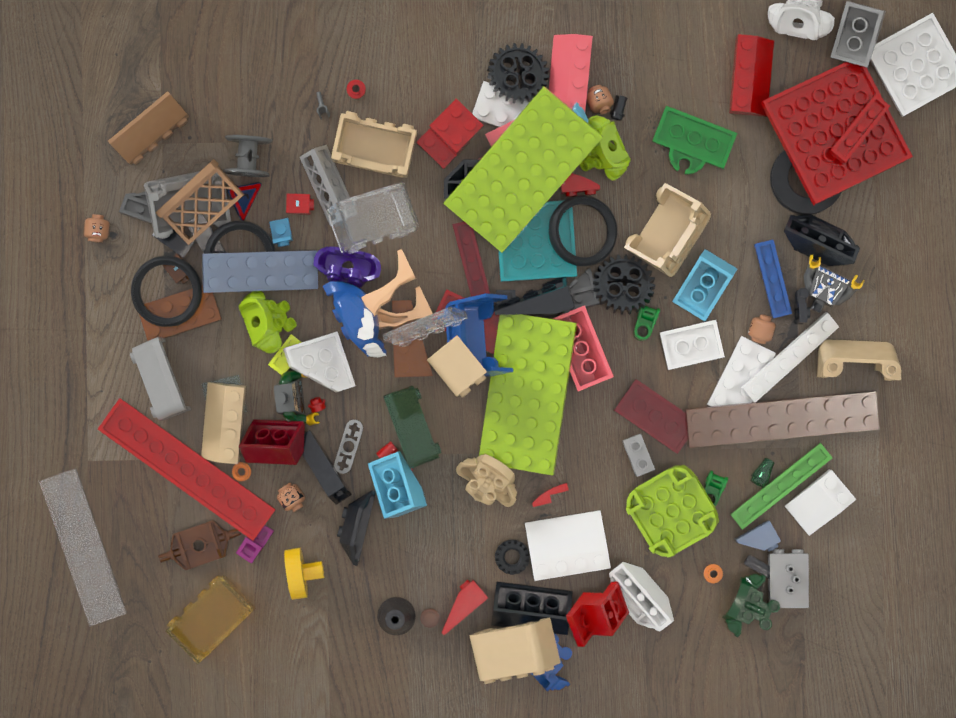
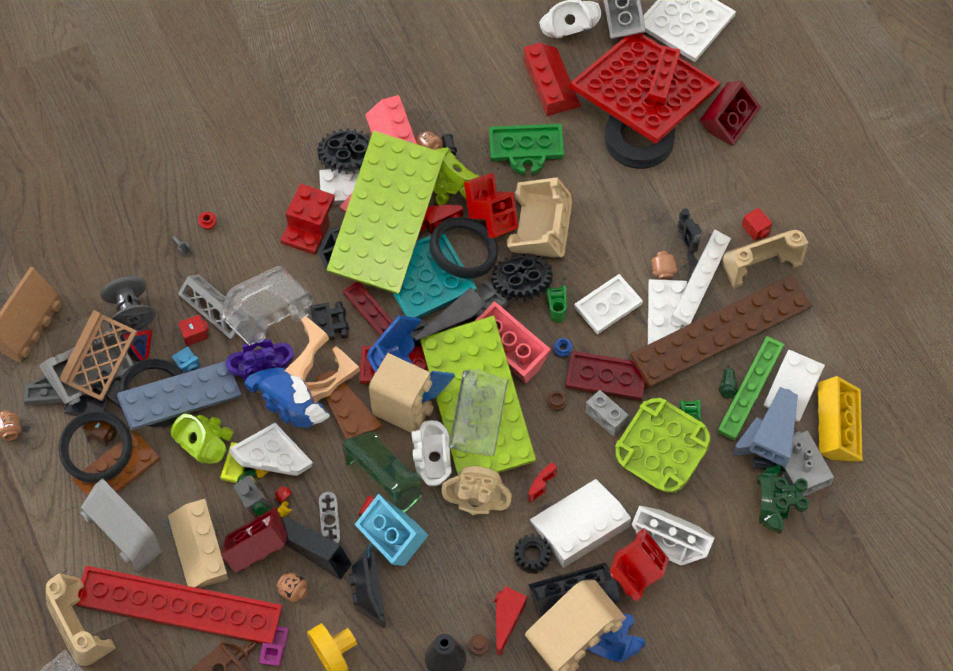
camera: 25 degrees left, 25 degrees down
(91, 477) = (60, 597): none -> tan windscreen
(237, 476) = (231, 581): orange plate -> none
(374, 145) = (243, 255): tan windscreen -> none
(421, 248) = (323, 315): none -> black plate
(421, 328) = (354, 371): clear plate -> none
(460, 445) = (429, 439): none -> white piece
(519, 413) = (478, 413): none -> clear slope
(600, 420) = (556, 400): none -> reddish brown plate
(624, 369) = (563, 342): none -> blue plate
(627, 199) = (490, 204): none -> red bracket
(704, 285) = (594, 251): medium azure slope -> none
(708, 569) = (729, 494): orange plate -> none
(773, 279) = (652, 223): blue plate -> none
(780, 543) = (777, 429): none -> sand blue slope
(821, 239) = (678, 177): black wedge -> none
(827, 286) = (704, 208): torso -> none
(844, 553) = (839, 420): none -> yellow slope
(870, 325) = (757, 224): none -> red brick
(906, 192) = (730, 112): none -> dark red slope

